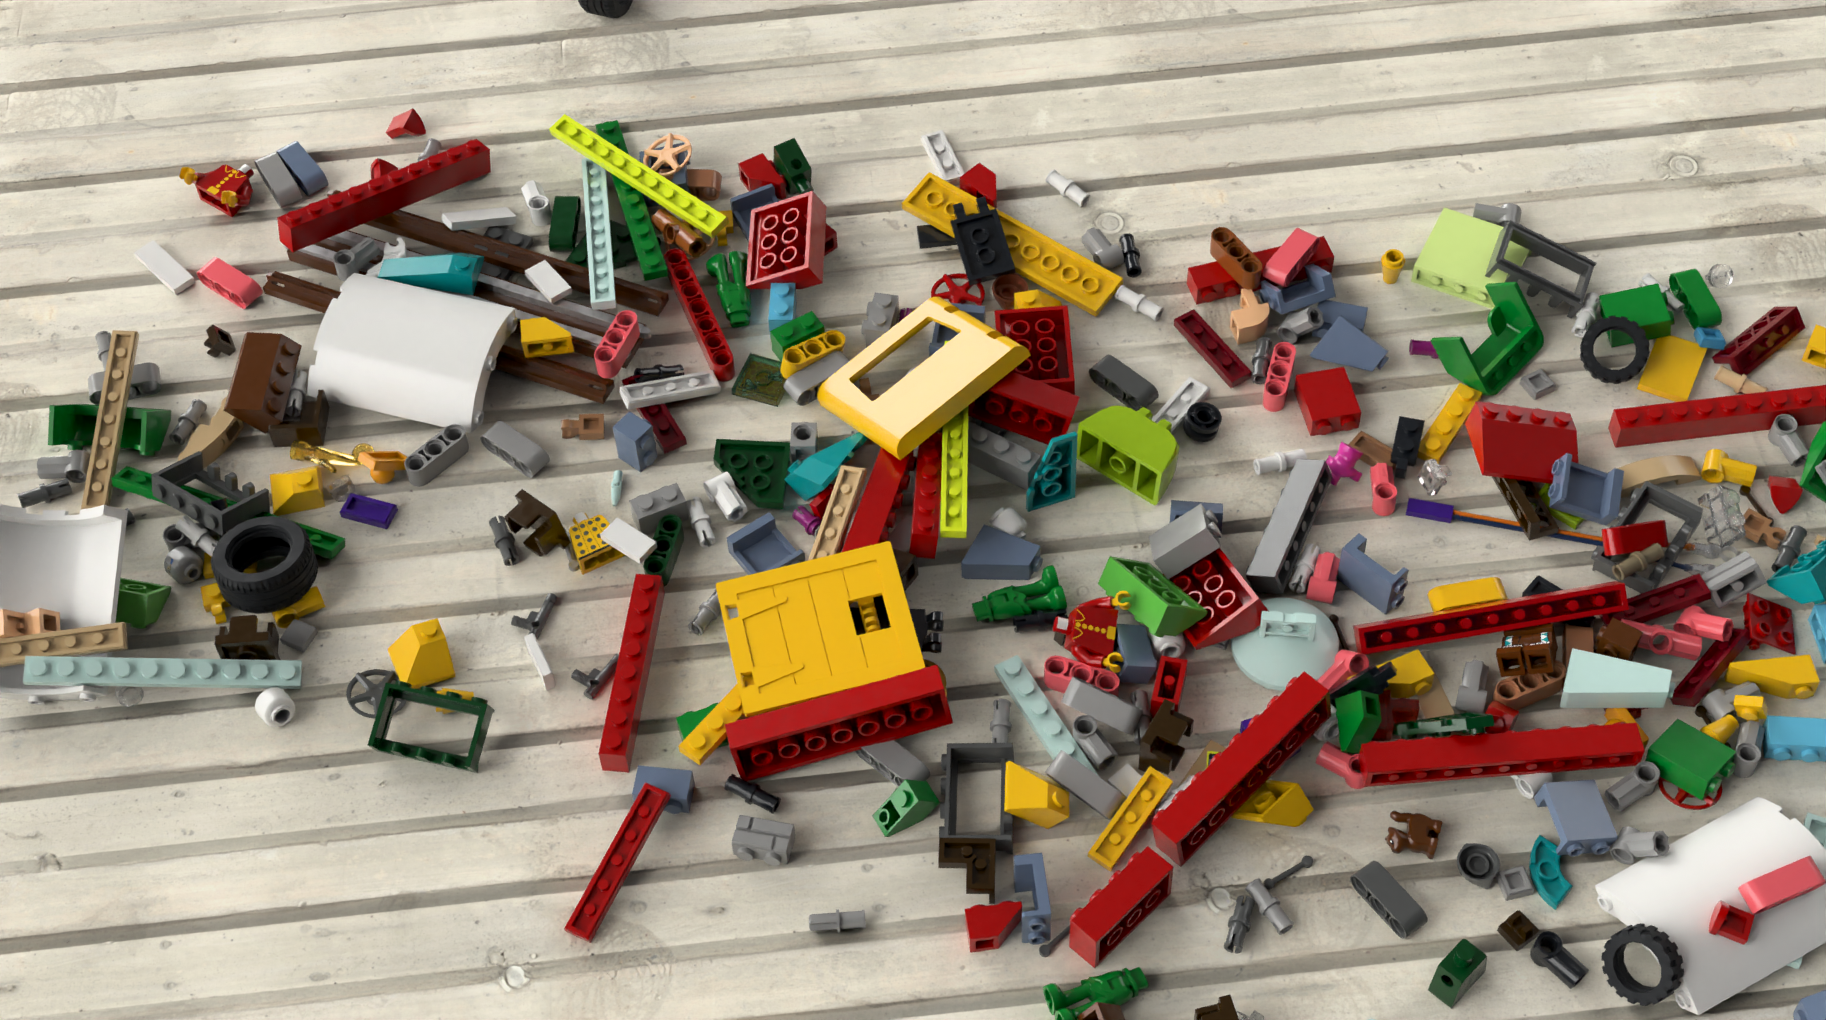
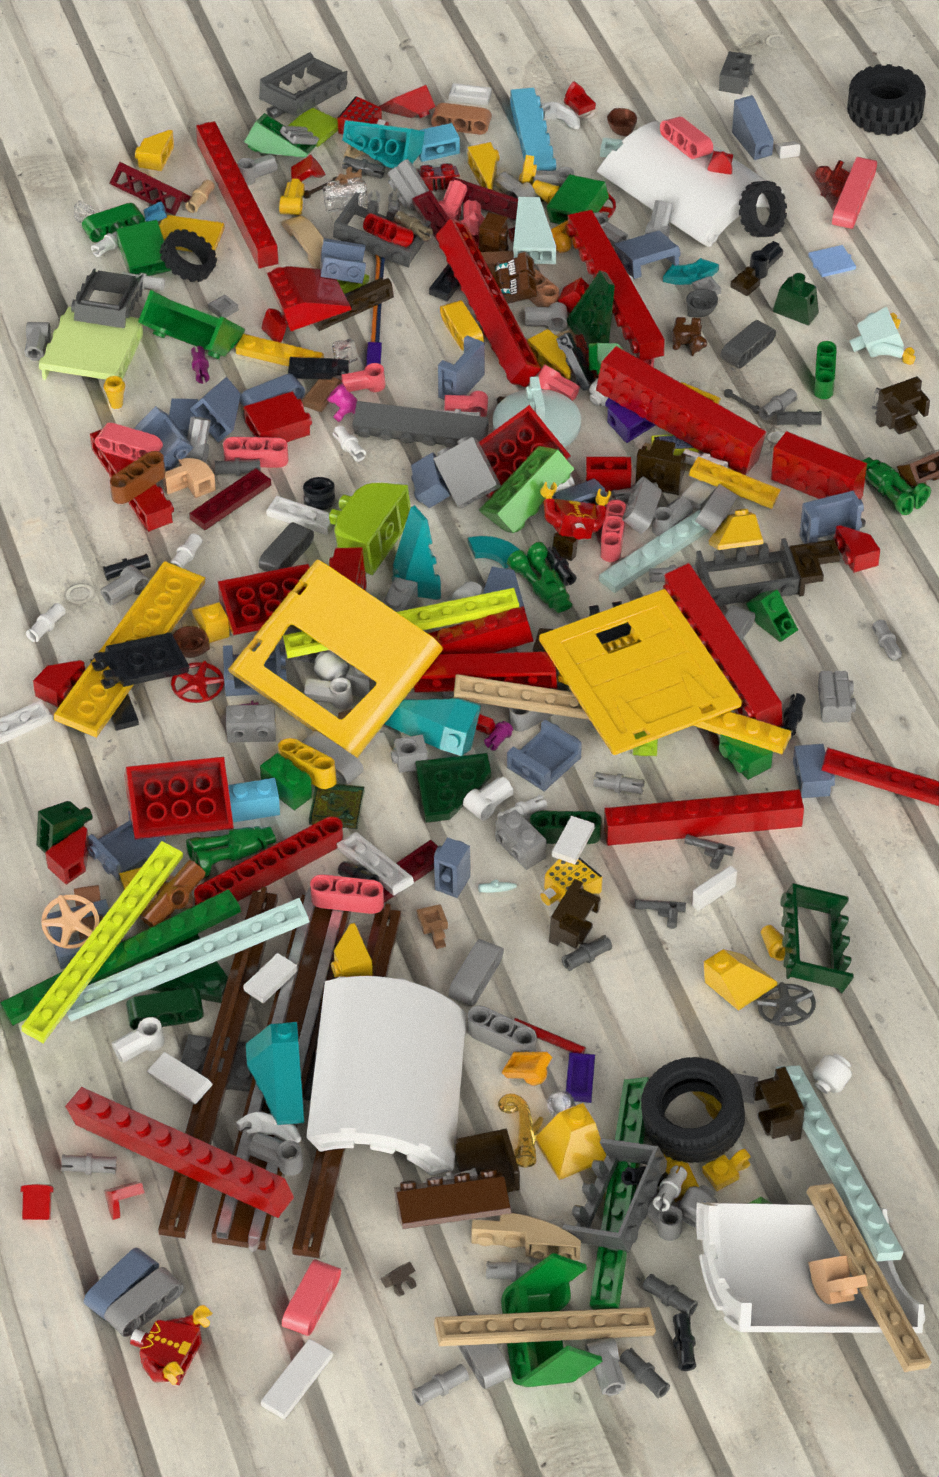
camera: 105 degrees left, 5 degrees down
(423, 495) = (555, 1039): none -> red bar
(1083, 570) = (491, 548): none -> teal tile
(1337, 972) = (825, 370): none -> green beam
(1375, 408) = (273, 388): none -> sand blue beam

